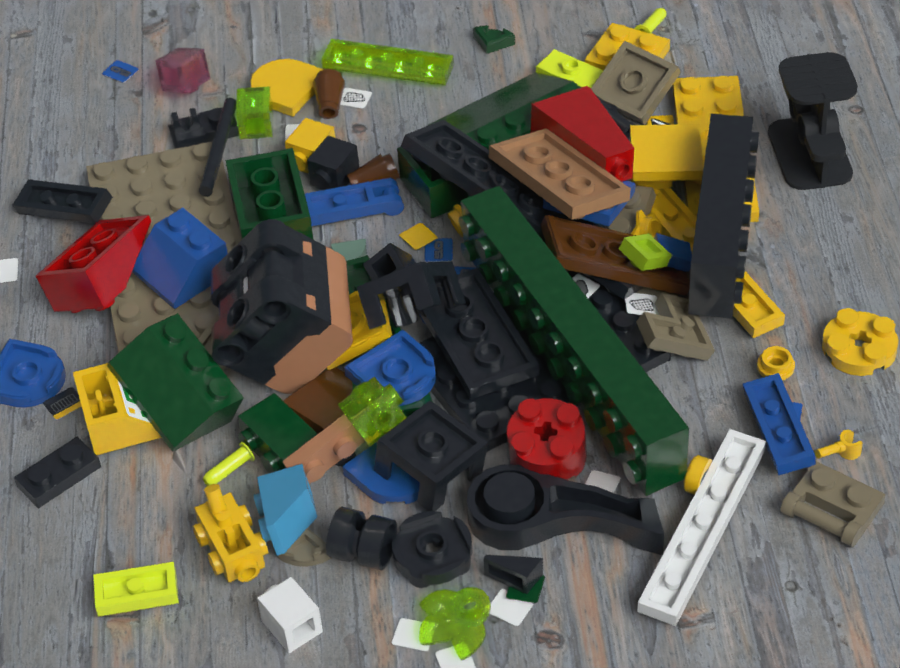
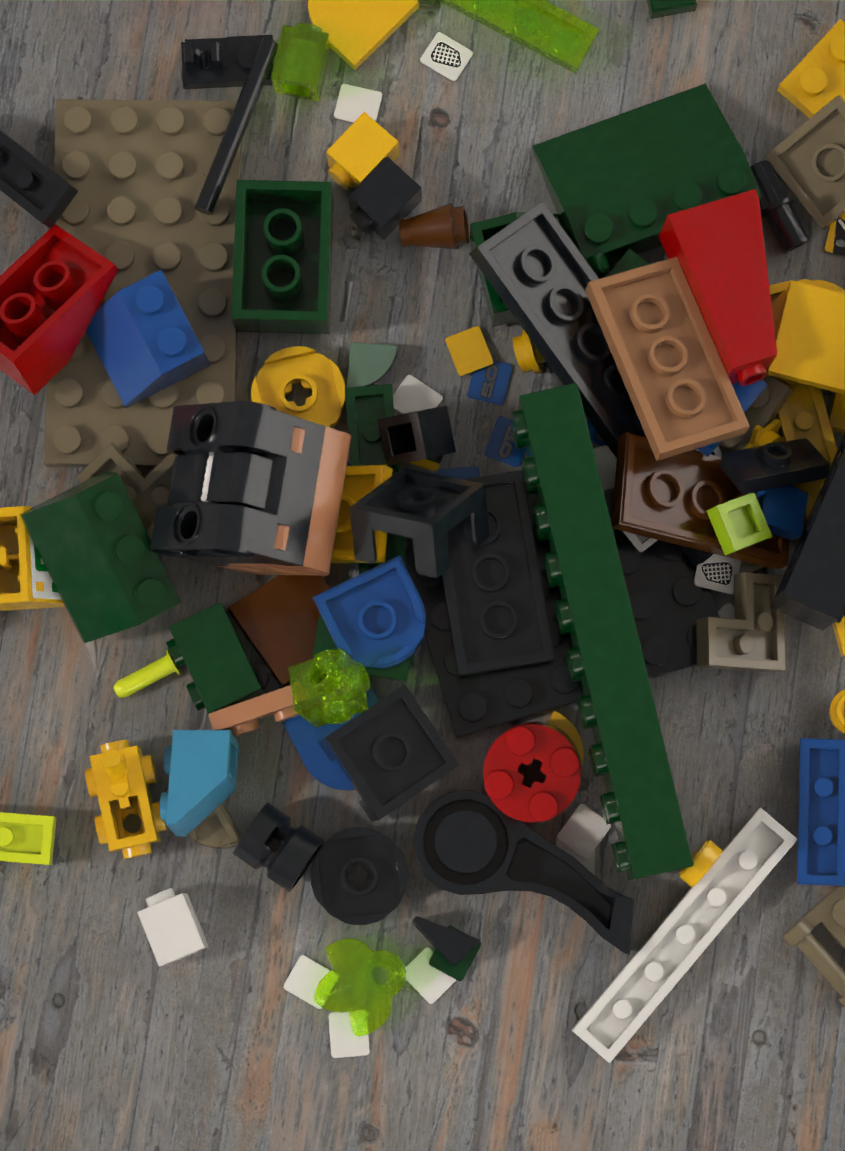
camera: 15 degrees right, 35 degrees up
(328, 92) = (410, 51): reddish brown cone -> none
(354, 201) = (395, 271): blue plate -> none
(569, 68) = (755, 101): neon yellow plate -> none
(656, 222) = (774, 465): none -> black plate

